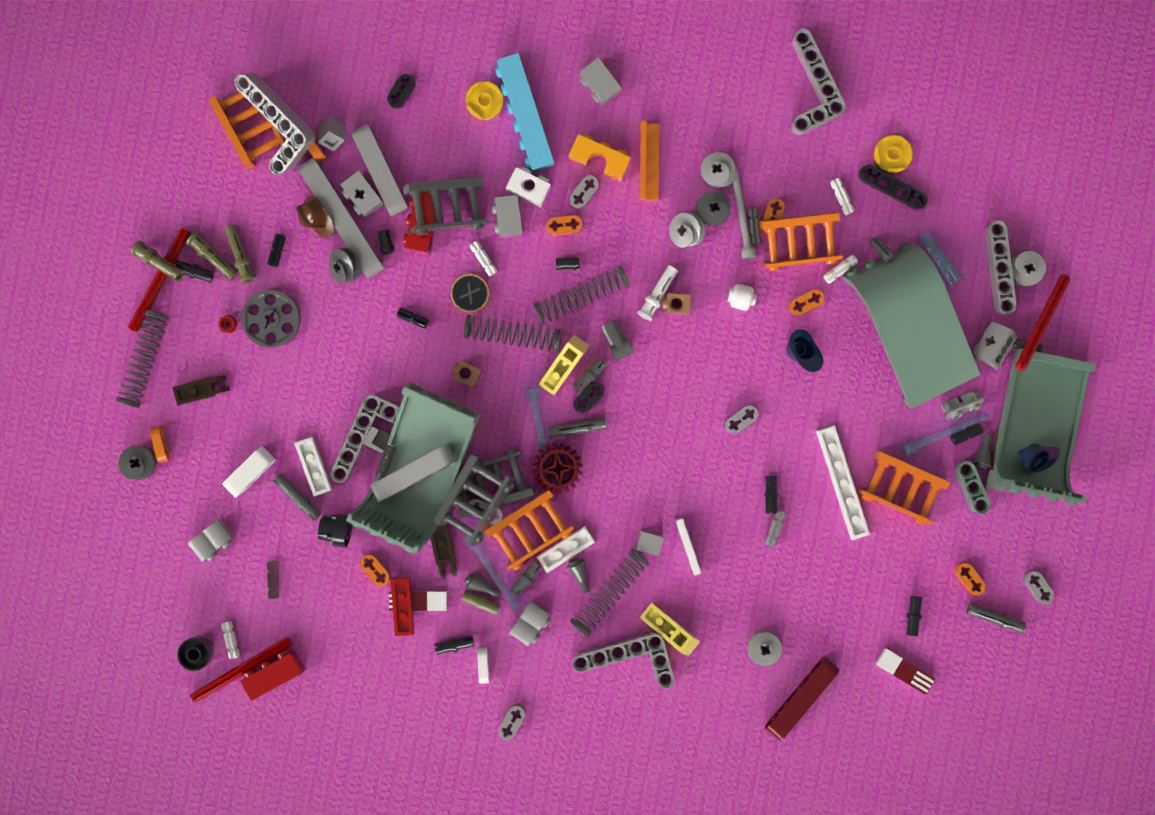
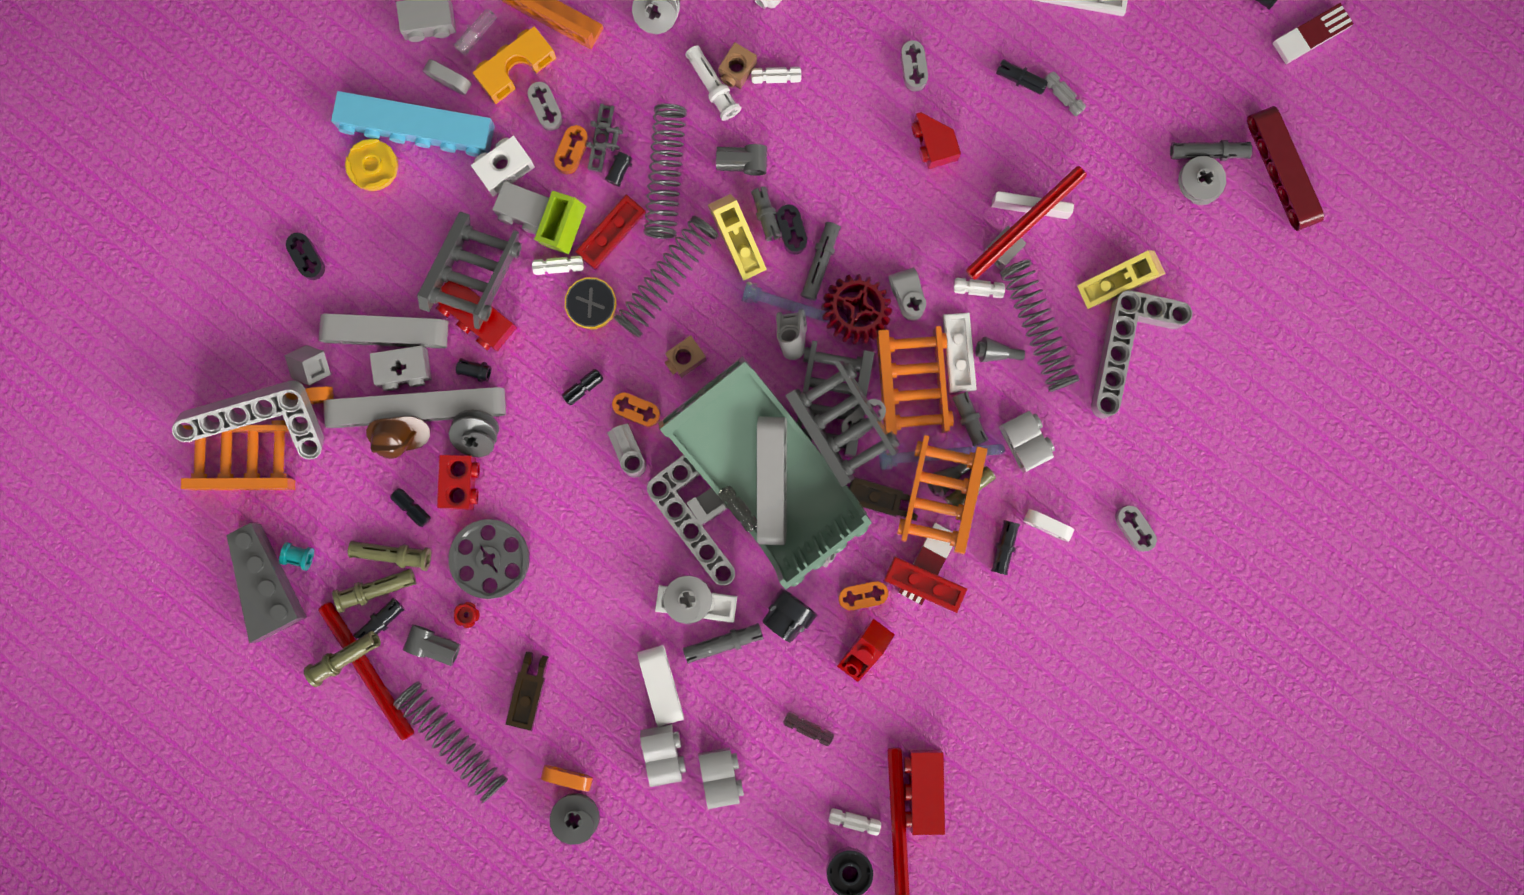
camera: 65 degrees left, 5 degrees down
(177, 184) = (262, 584): none -> dark grey wedge
(195, 307) = (425, 643): none -> dark grey piece
(205, 496) = (661, 755): none -> light grey brick
(206, 195) = (296, 556): none -> teal bush
(301, 459) = (680, 611): none -> light grey piece
(306, 267) = (449, 482): none -> red brick
(341, 590) = (866, 650): none -> red slope
(388, 368) = (626, 449): none -> light grey piece
(412, 362) = (638, 403): none -> orange beam
(477, 601) = (961, 512): none -> orange fence
(510, 245) = (560, 222): none -> lime brick
(520, 432) = (792, 333): none -> light grey piece
(524, 280) = (610, 232): none -> red tile
(567, 117) = (447, 77): none -> light grey beam
(576, 239) = (602, 146): none -> dark grey piece
(589, 493) = (908, 289): none -> light grey piece
(608, 119) = (474, 32): none -> clear axle
(615, 540) = (979, 287): none -> white axle
(670, 549) = (1026, 222): none -> red axle
(686, 332) = (776, 75): none -> white axle
(697, 461) = (936, 140): none -> red slope
(792, 651) = (1219, 150): none -> dark grey pin

